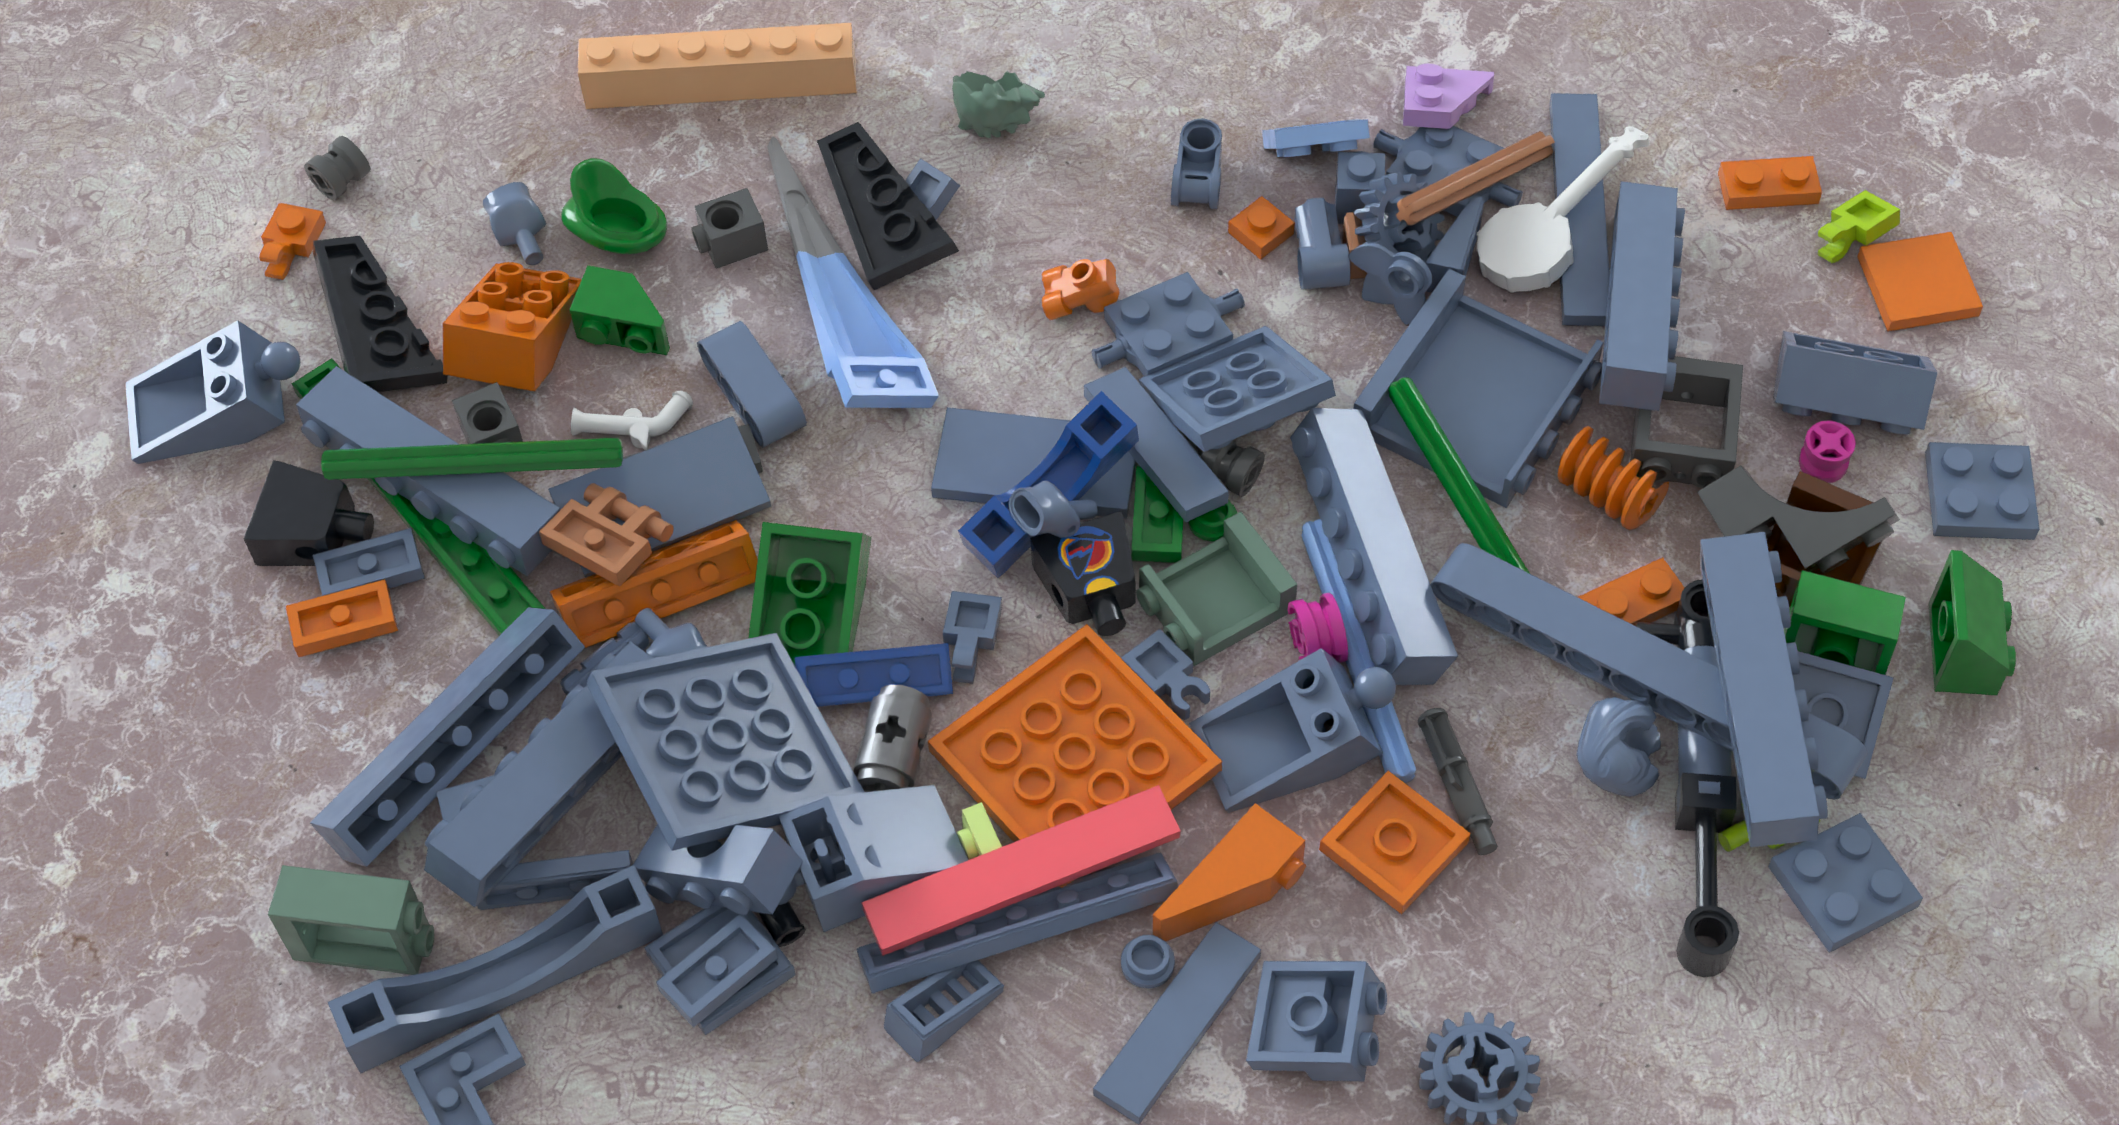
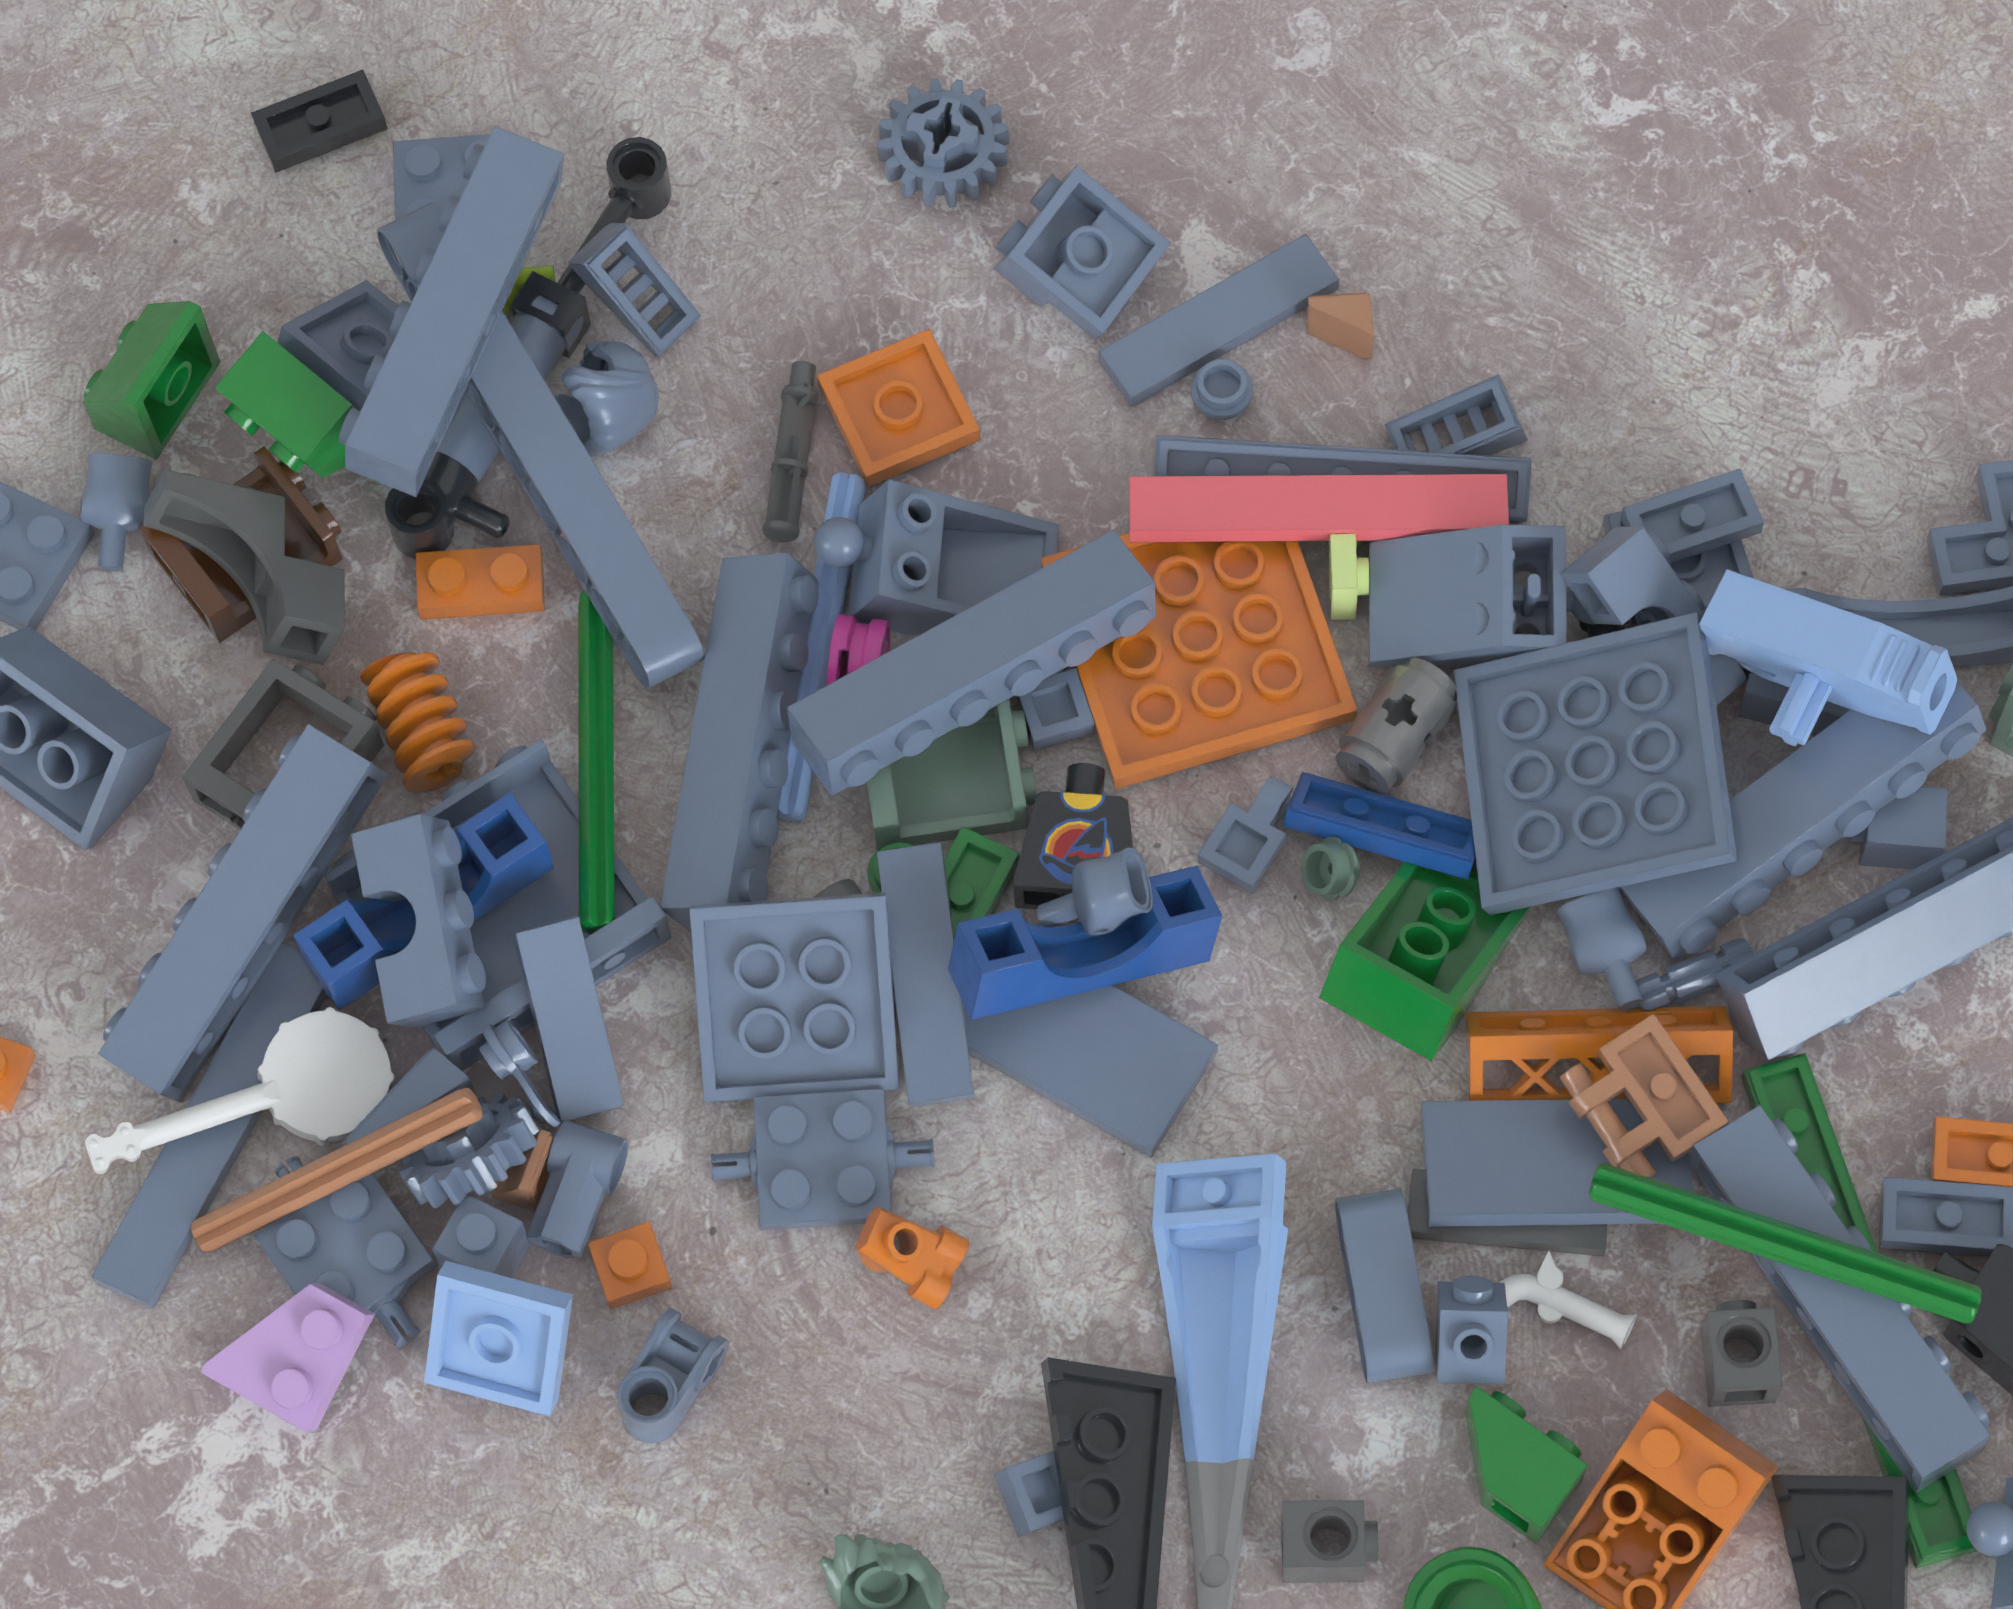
camera: 155 degrees left, 10 degrees up
(562, 832) = (1826, 657): none -> light blue piece
(678, 363) = (1471, 1331): none -> sand blue brick
(900, 629) = (1330, 868): none -> sand green plate
(1072, 1047) = (1342, 321): none -> nougat slope
(1222, 632) = (972, 663): none -> sand blue brick
(1235, 876) = (1086, 432): orange slope -> none
(1383, 320) = (568, 1018): none -> sand blue tile
(1505, 375) = (498, 860): none -> blue arch
(1535, 335) = (438, 969): none -> sand blue arch
(1685, 857) = (603, 284): none -> sand blue slope
(1822, 440) = (141, 647): dark pink wheel -> none
(1926, 540) = (115, 502): none -> sand blue piece
(1992, 891) = (319, 121): none -> black plate

